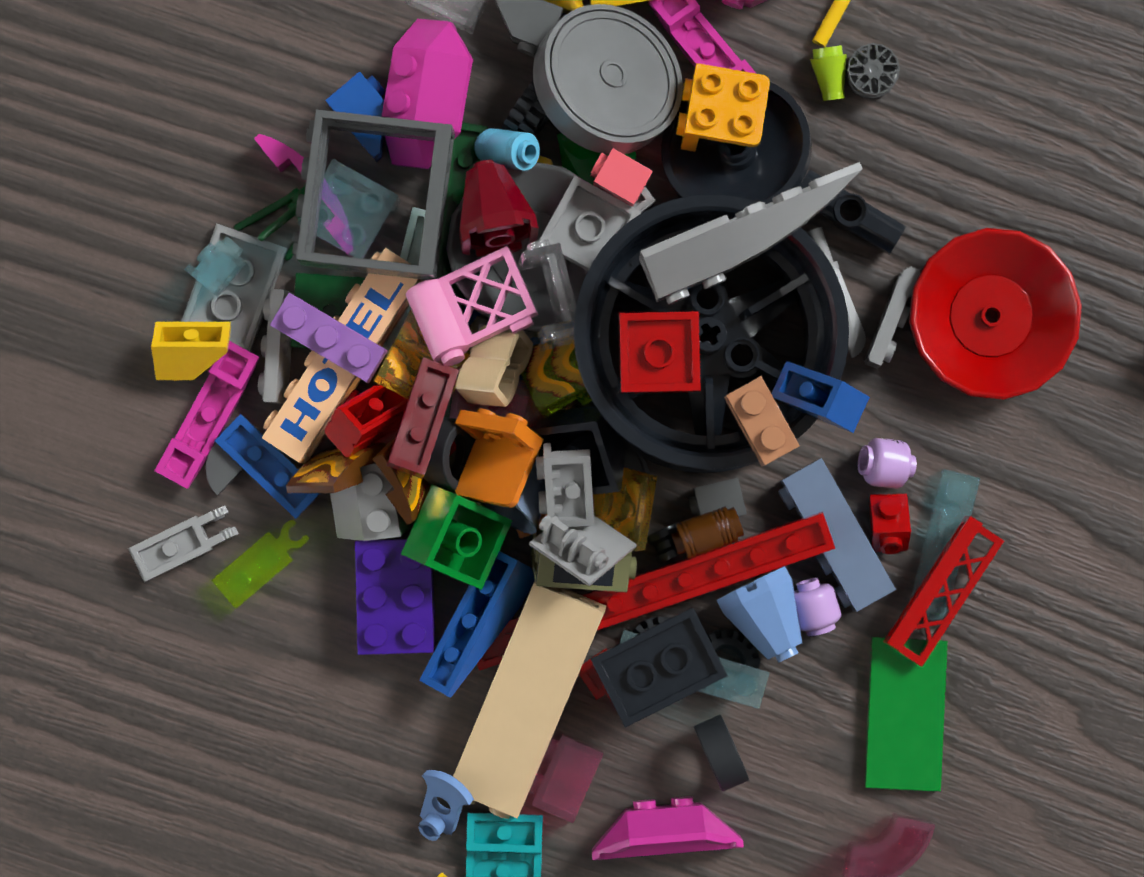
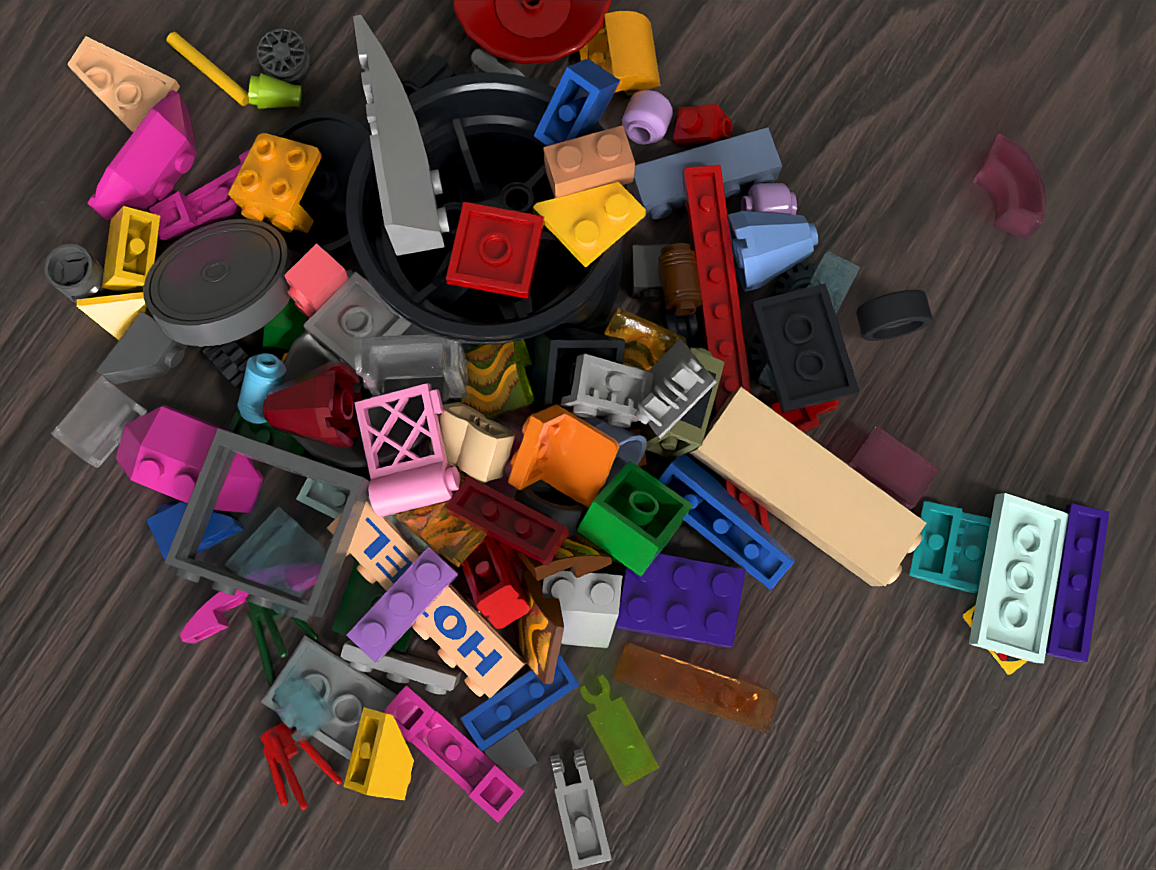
camera: 80 degrees left, 10 degrees down
(180, 253) = (279, 749): none -> red plant
(316, 630) = (698, 688): none -> clear orange slope
(434, 815) = (910, 603): medium blue piece -> none
(665, 830) = (958, 390): dark pink wedge -> none
(712, 434) = (591, 219): none -> yellow wing
(905, 717) = (882, 151): green tile -> none
(932, 584) = (772, 93): red fence -> none
(946, 422) = (625, 51): none -> light orange brick
(952, 503) = (733, 88): clear light blue plate -> none

